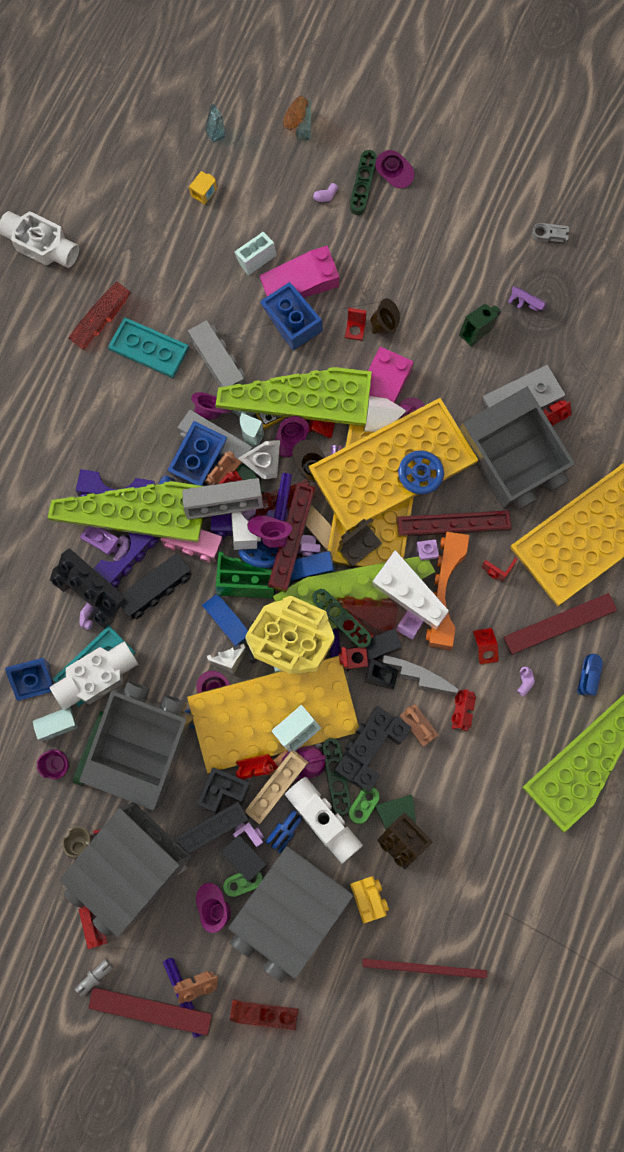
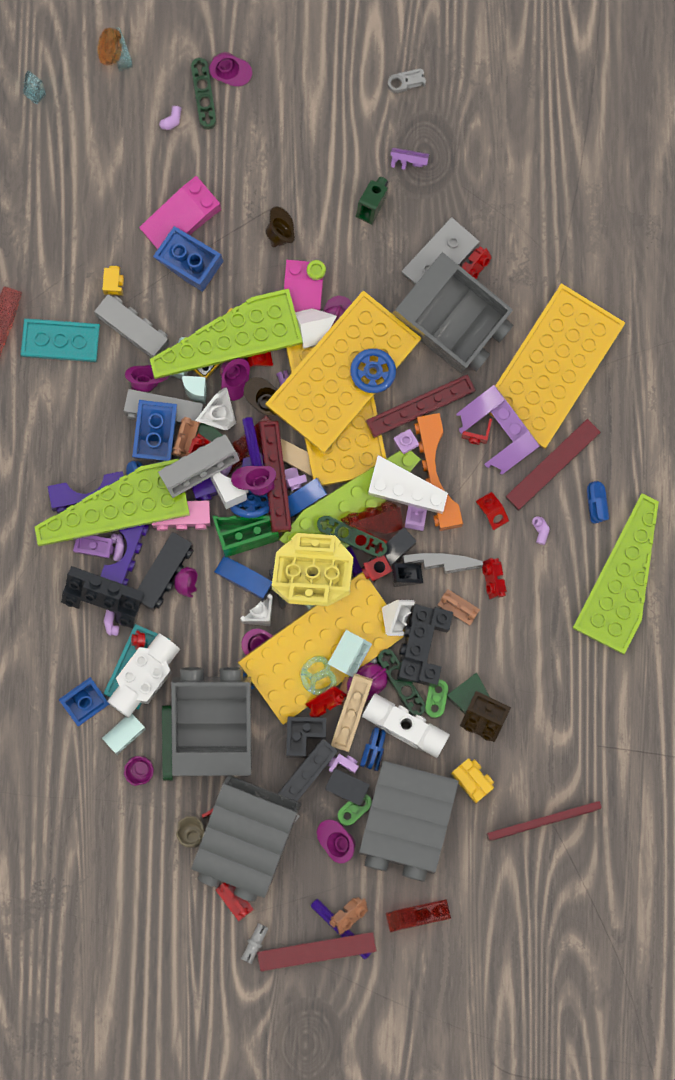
camera: 25 degrees left, 5 degrees up
(104, 640) = (138, 640): none -> red plate
(171, 603) = (185, 581): none -> magenta hair
(203, 187) = (47, 156): yellow brick -> none
(216, 312) = (112, 281): none -> yellow brick
(256, 253) = (127, 206): light aqua brick -> none
(257, 739) = (317, 676): none -> clear light blue piece
(355, 710) = (396, 615): none -> white slope
(357, 318) = (251, 237): red bracket -> none
(358, 543) = (341, 460): dark brown bracket -> none
(403, 363) = (316, 270): none -> lime tile
(539, 588) = (522, 439): none -> medium lavender wedge

